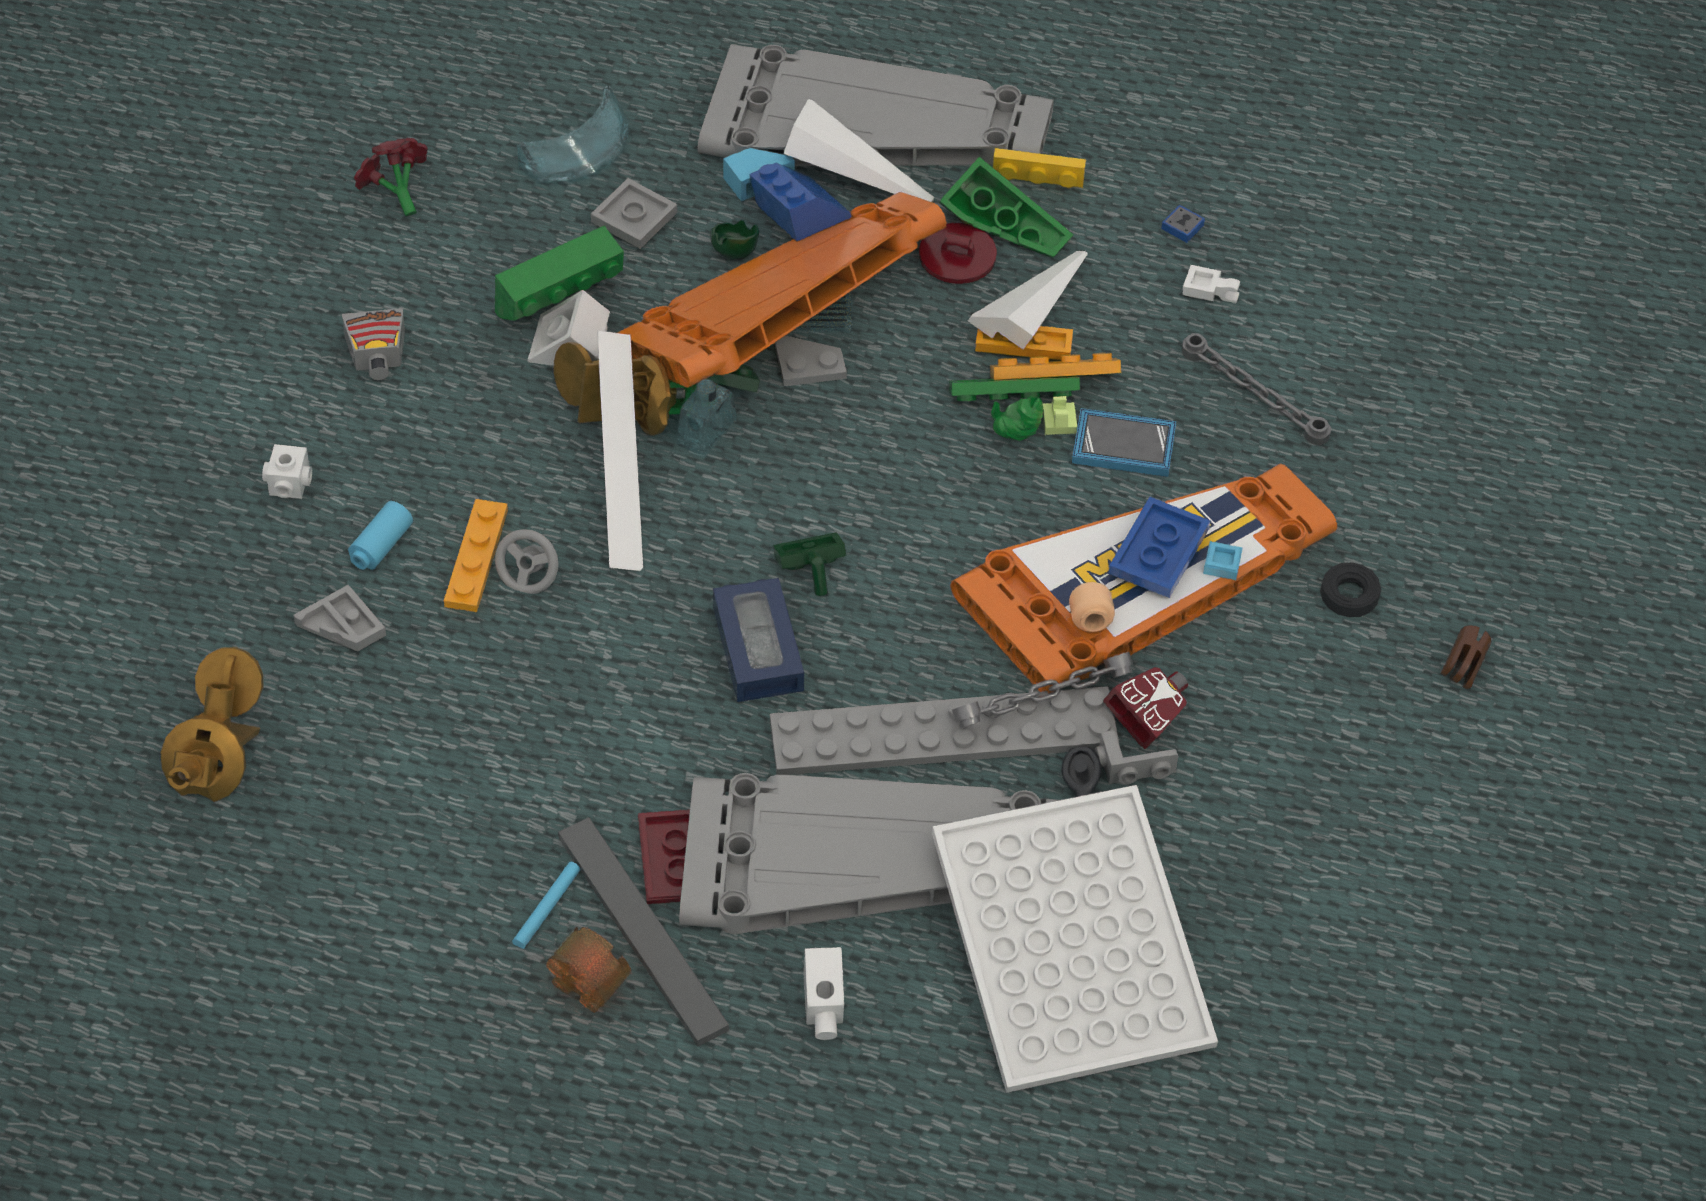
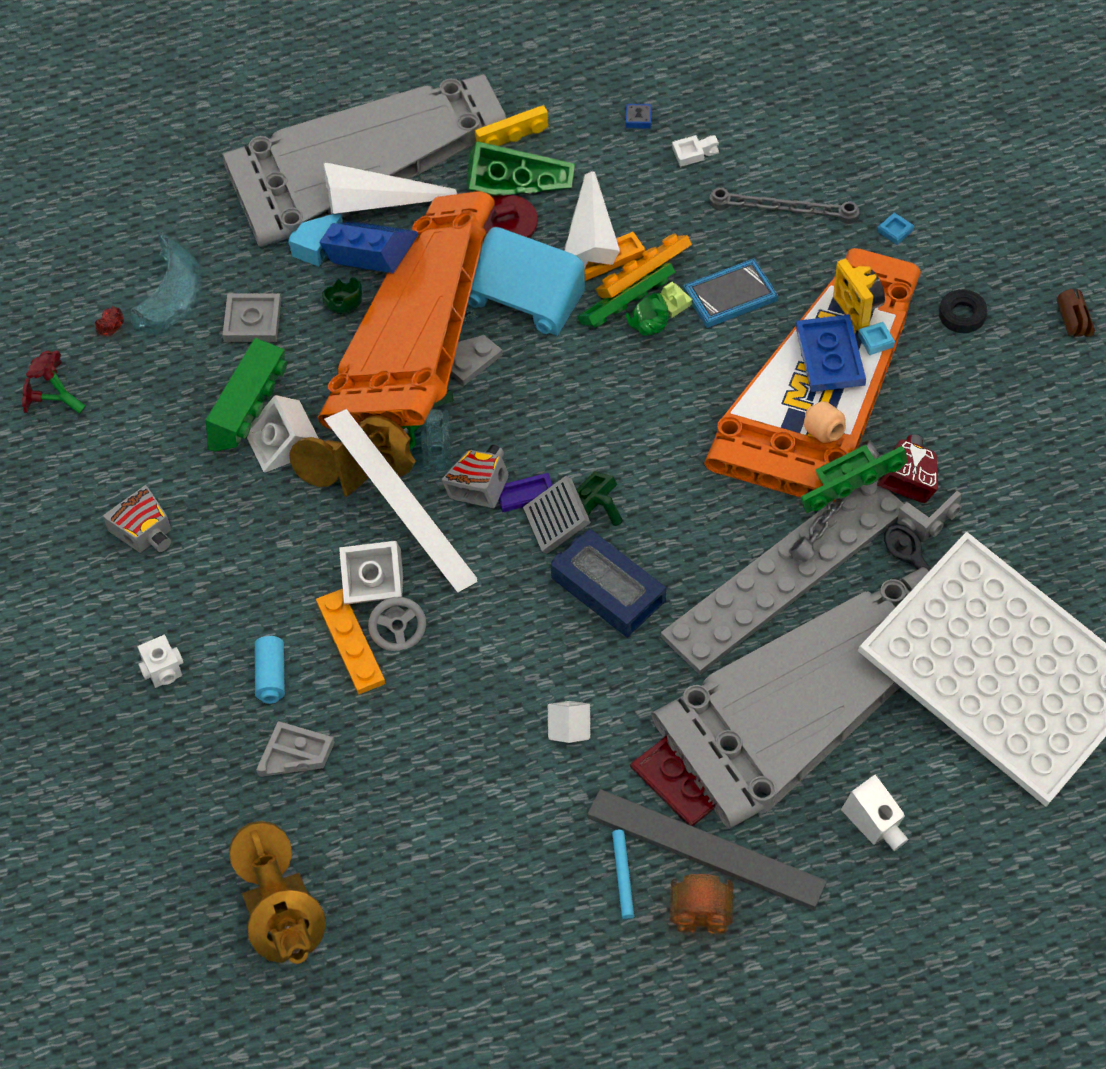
camera: 30 degrees left, 5 degrees up
(499, 145) = (110, 322): none -> clear red plate
(542, 501) = (371, 572): none -> white slope
(612, 741) = (569, 721): none -> white panel
(717, 473) = (477, 477): none -> light grey torso
(755, 515) = (521, 492): none -> dark purple tile
(761, 549) = (556, 514): none -> light grey tile
(922, 318) = (528, 278): none -> medium azure windscreen
(1070, 668) = (849, 473): none -> green bracket
(1234, 502) = (857, 292): none -> yellow piece
(1354, 473) = (895, 228): none -> dark azure tile

